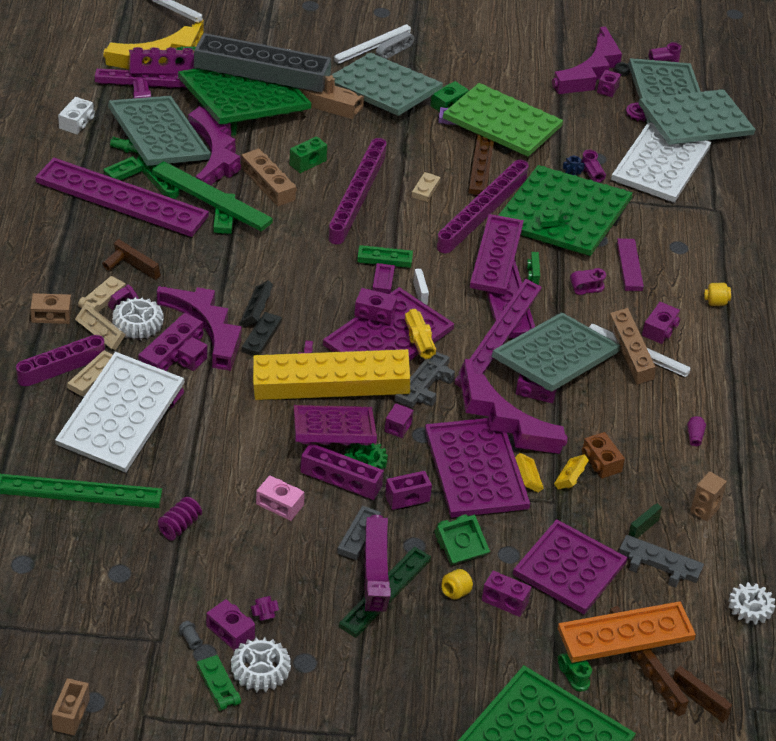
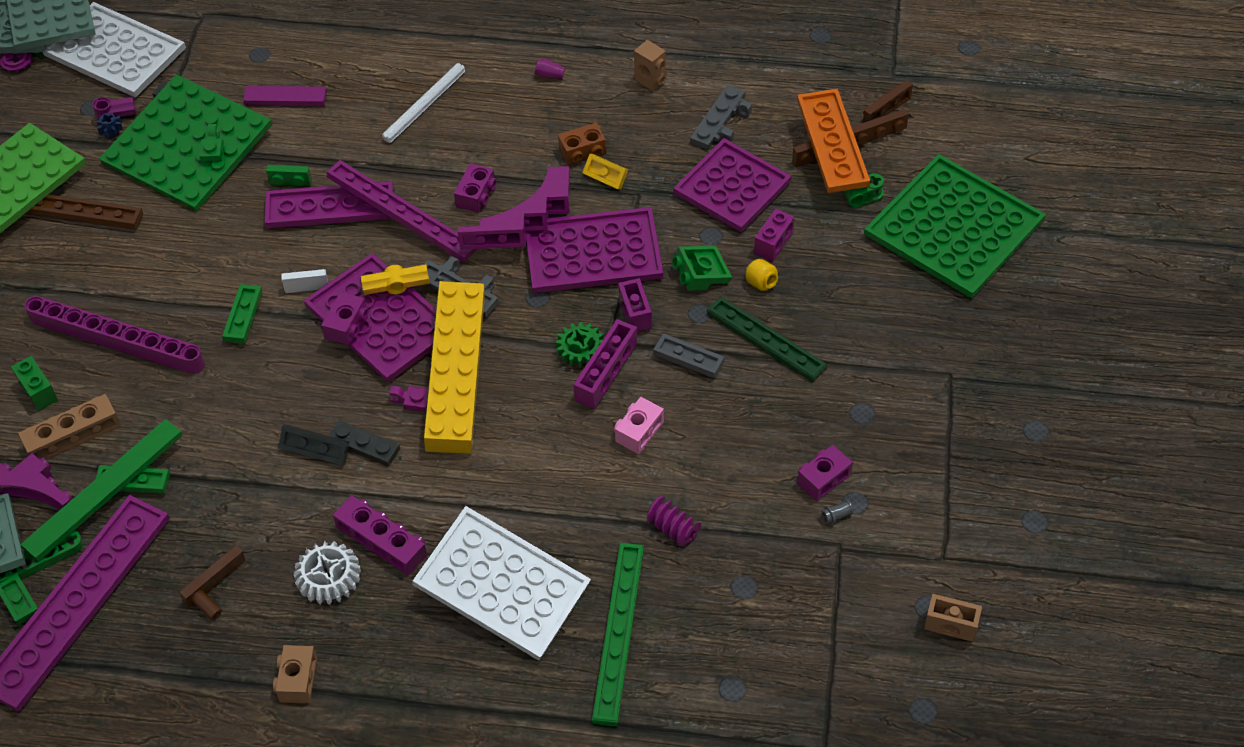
camera: 80 degrees left, 10 degrees up
(59, 360) = (401, 667): magenta beam -> none
(87, 376) = (421, 621): tan plate -> none
(100, 326) = (337, 615): tan plate -> none
(101, 295) = (271, 618): tan plate -> none
(122, 295) = (284, 591): magenta tile -> none
(192, 354) = (399, 510): magenta brick -> none
(201, 305) = (371, 478): magenta arch -> none
(218, 682) = (898, 487): green plate -> none
(261, 672) = (877, 452): white gear -> none
(265, 608) = (801, 440): magenta gear -> none
(334, 424) = (538, 365): magenta plate -> none
(375, 564) = (794, 328): magenta arch -> none
(383, 278) = (279, 319): magenta tile -> none
(398, 420) = (523, 312): magenta brick -> none
(426, 187) = (115, 269): tan plate -> none
(482, 206) = (168, 214): magenta beam -> none
(496, 254) = (265, 201): magenta plate -> none
(529, 472) = (604, 205): yellow tile -> none
(556, 351) = (433, 163): sand green plate -> none
(587, 282) = (313, 130): magenta piece -> none
(632, 346) = (430, 99): medium nougat brick -> none
(645, 521) = (675, 121): dark green tile -> none
(661, 323) = (387, 77): magenta brick -> none
(717, 294) = (350, 26): yellow head -> none
(751, 603) = (777, 56): white gear -> none

